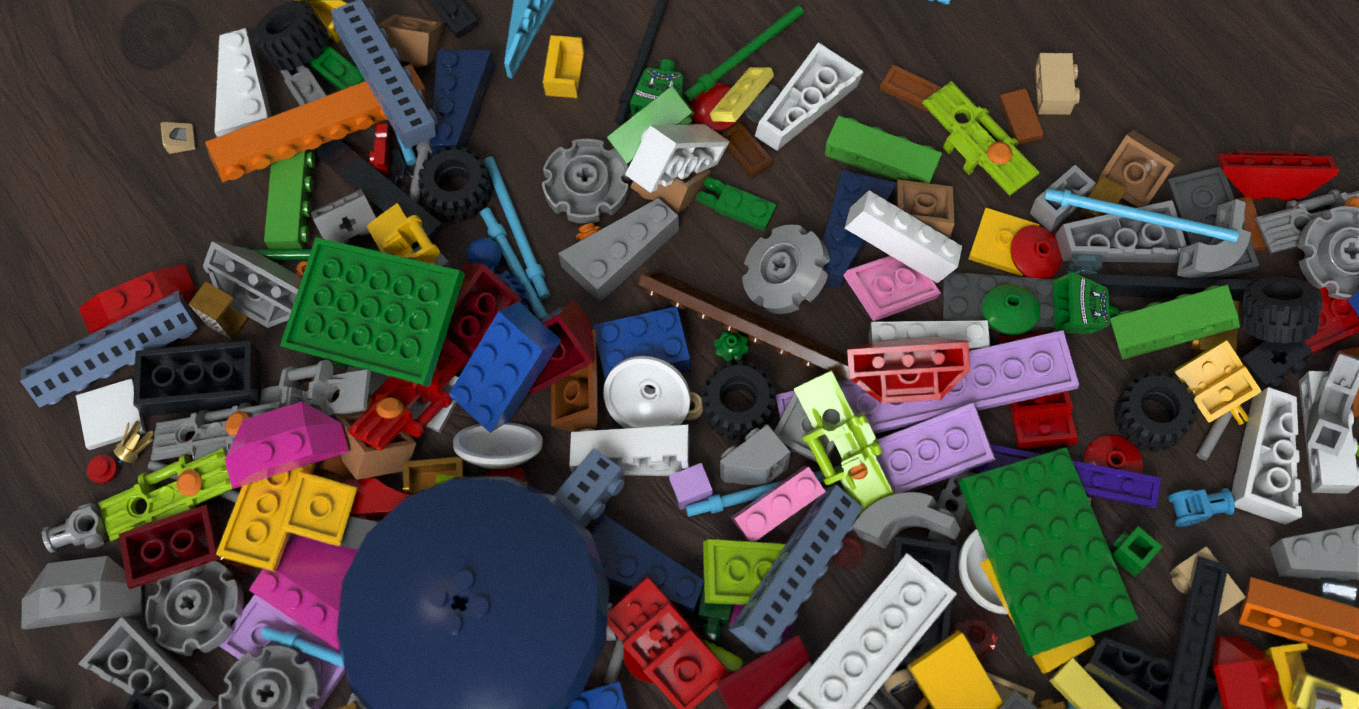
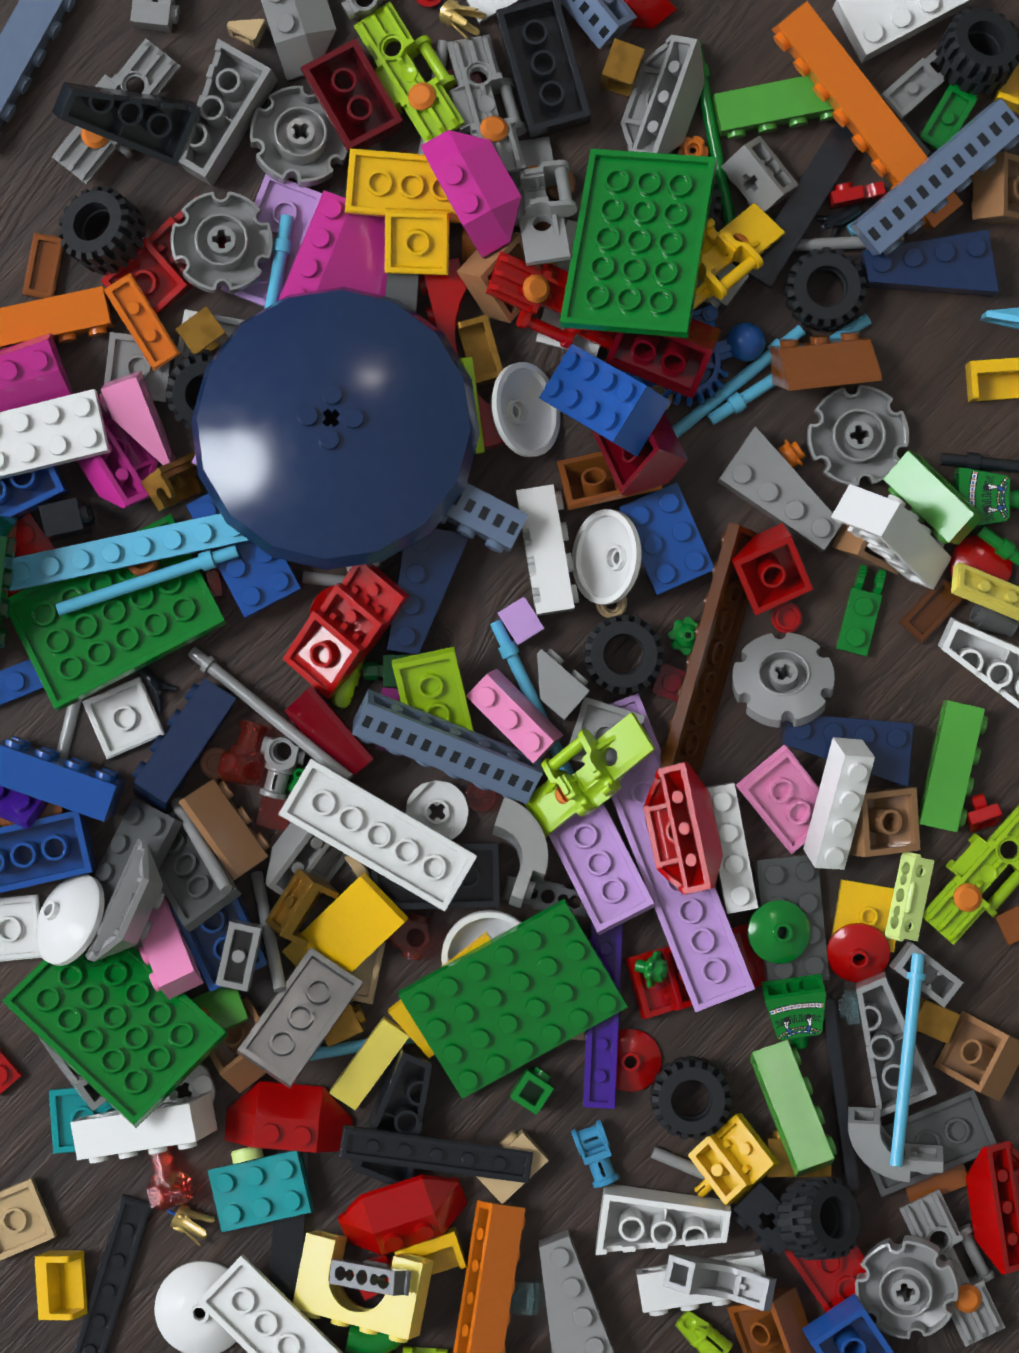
camera: 75 degrees right, 20 degrees up
(81, 639) = (247, 31): none -> tan slope
(516, 191) = (824, 362): none -> dark orange slope
(686, 258) = (771, 569): none -> red slope
(730, 263) = (786, 617): none -> red plate
(773, 365) = (668, 682): none -> dark red plate
(842, 582) = (436, 793): none -> white plate
(928, 135) = (982, 814): none -> red tile
(993, 200) = (909, 897): none -> yellowish green piece
(1033, 420) = (654, 969): none -> green plant

